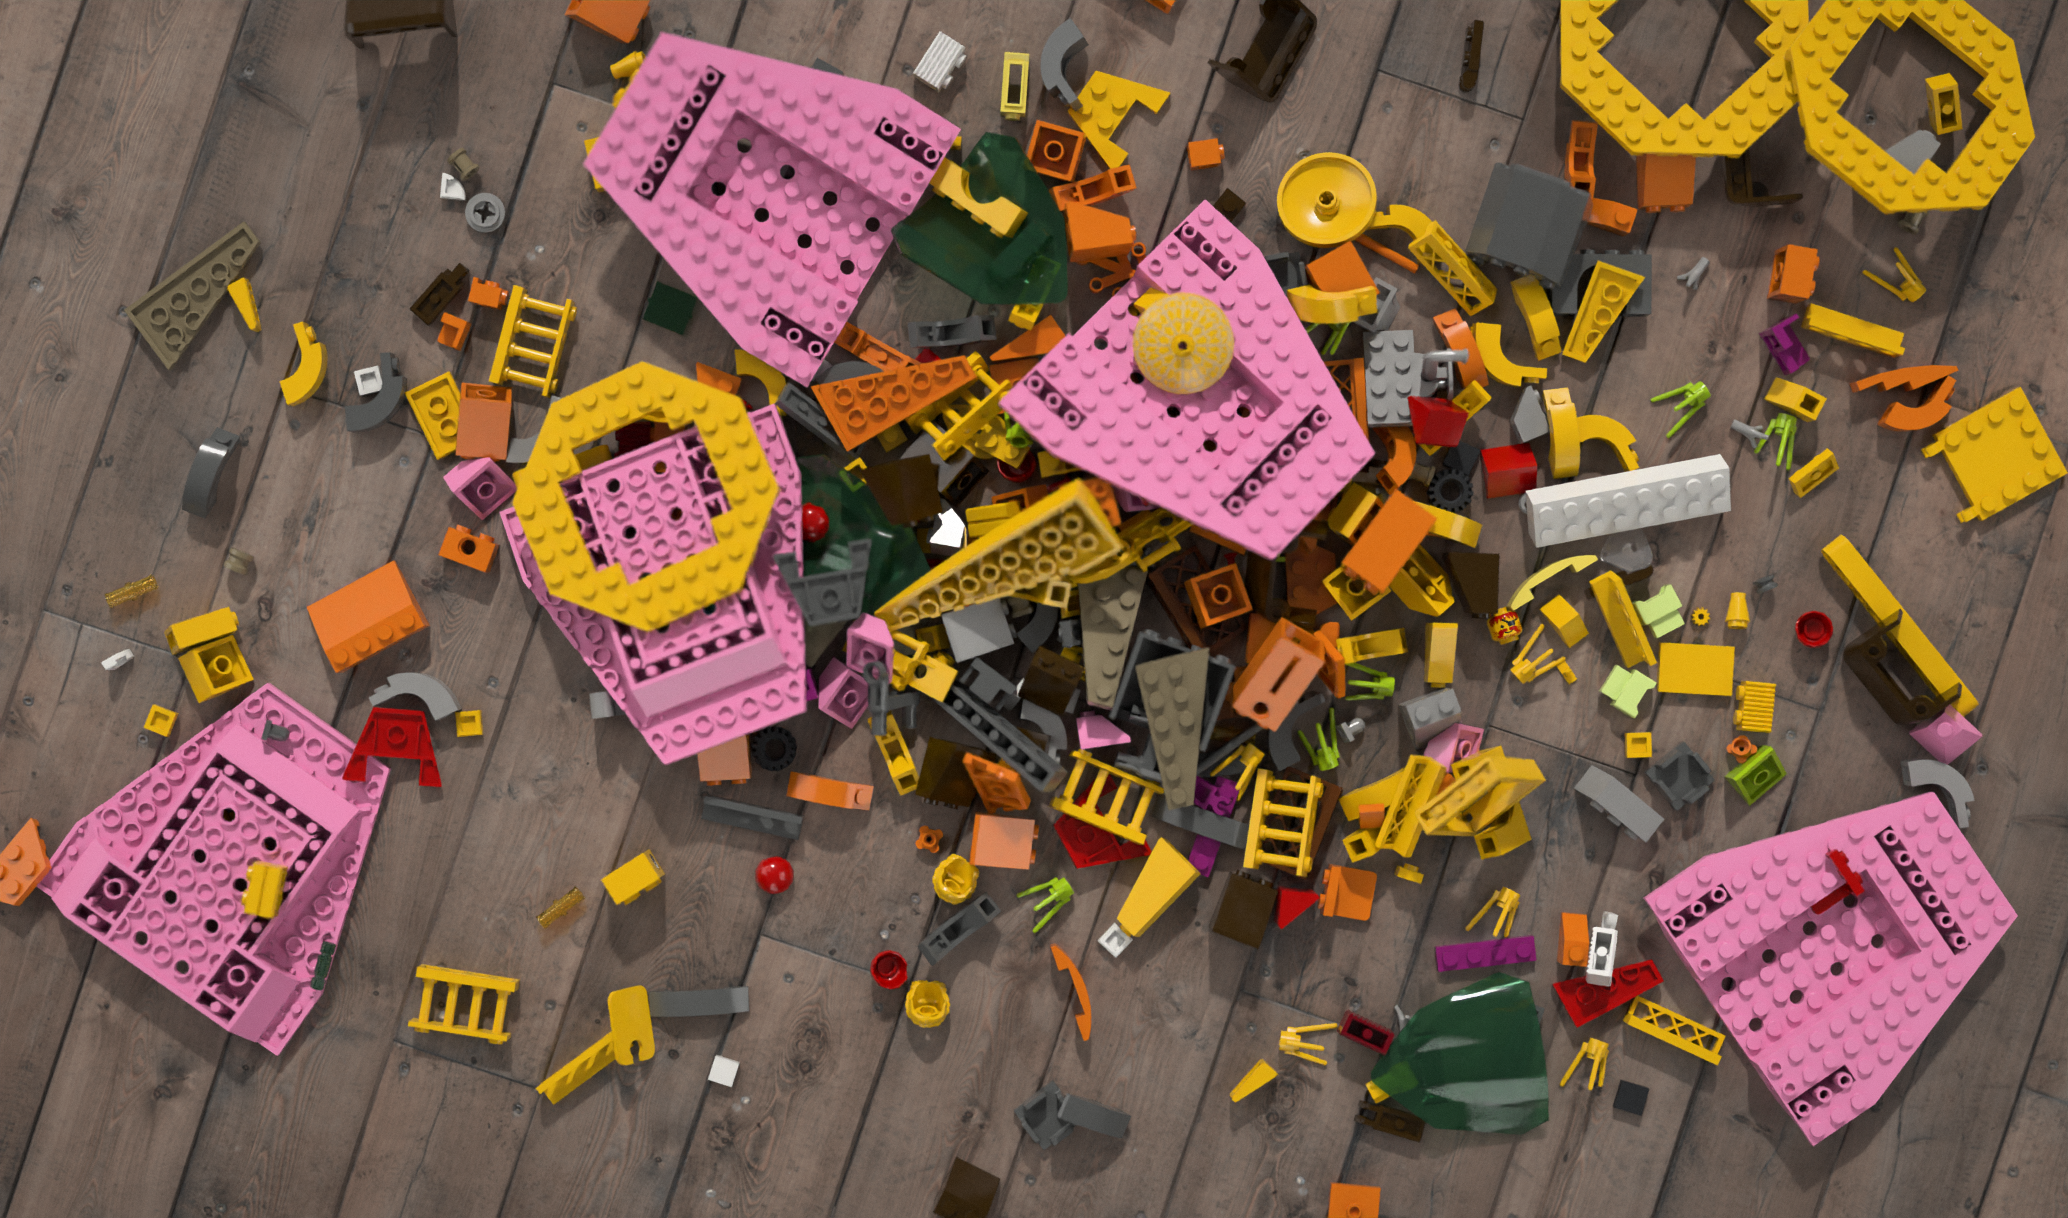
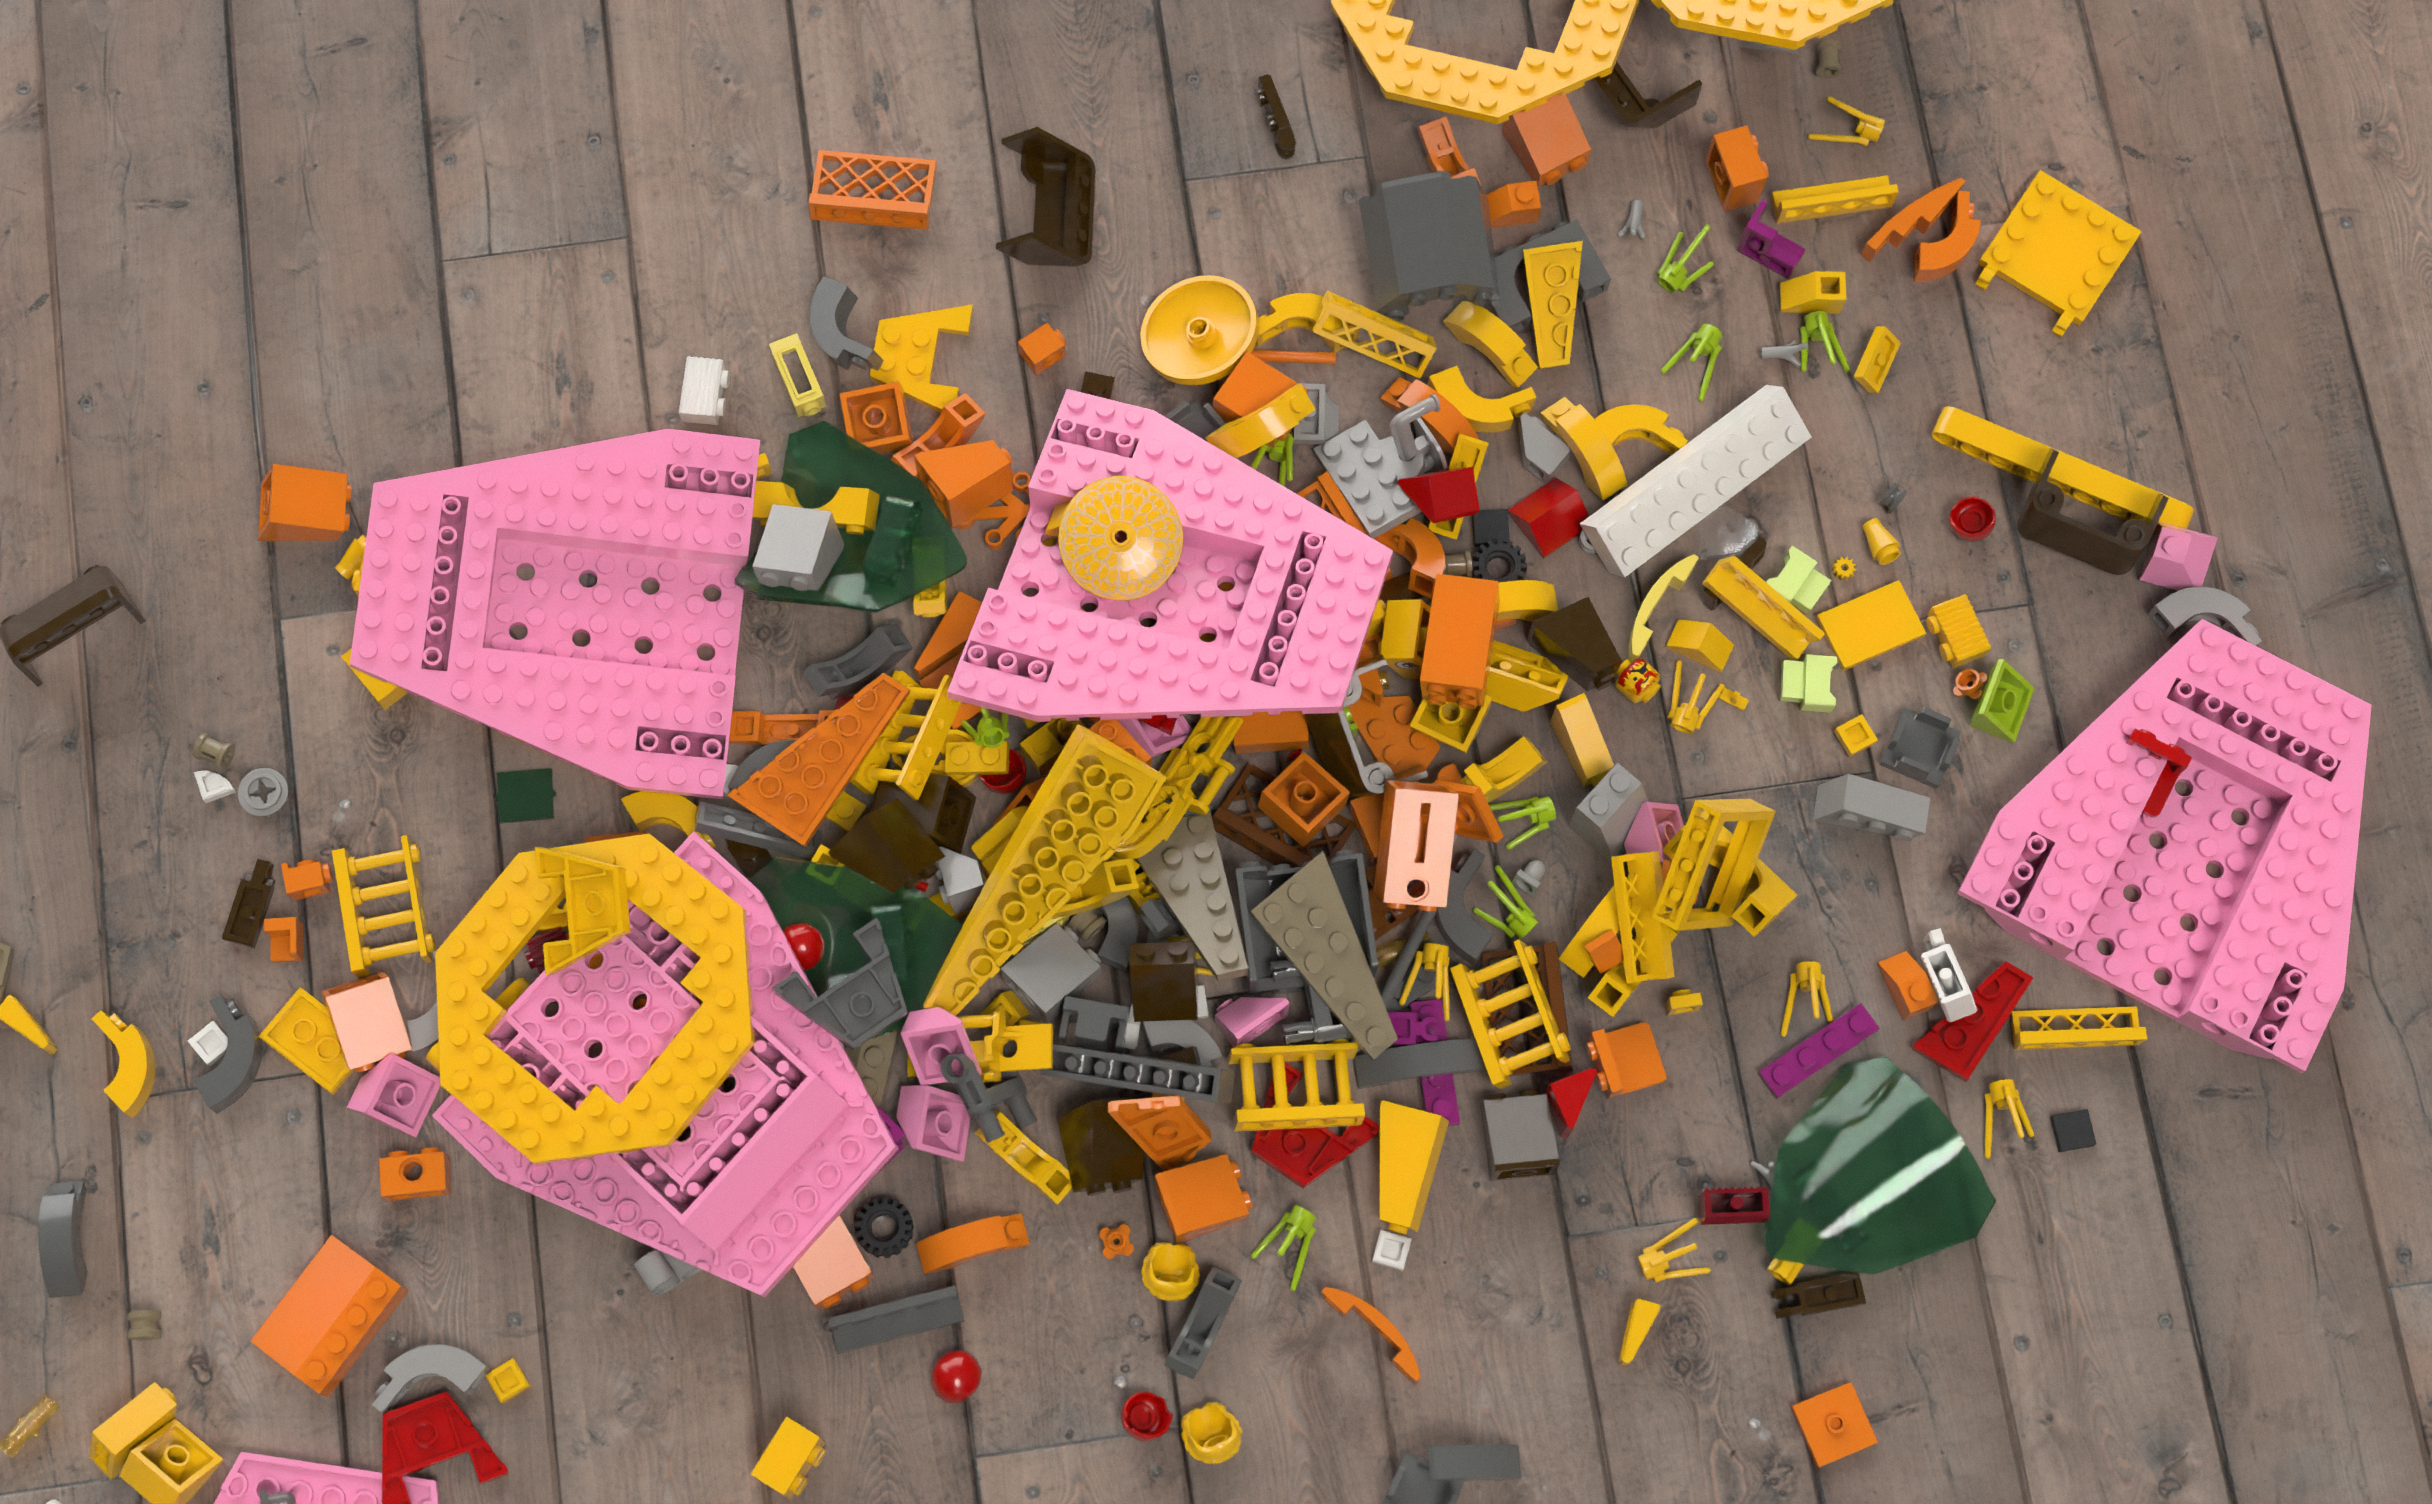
camera: 30 degrees left, 15 degrees down
(676, 430) = (594, 905): none -> yellow wing
(947, 230) = (797, 548): none -> slope
(1700, 332) = (1672, 276): none -> lime plant

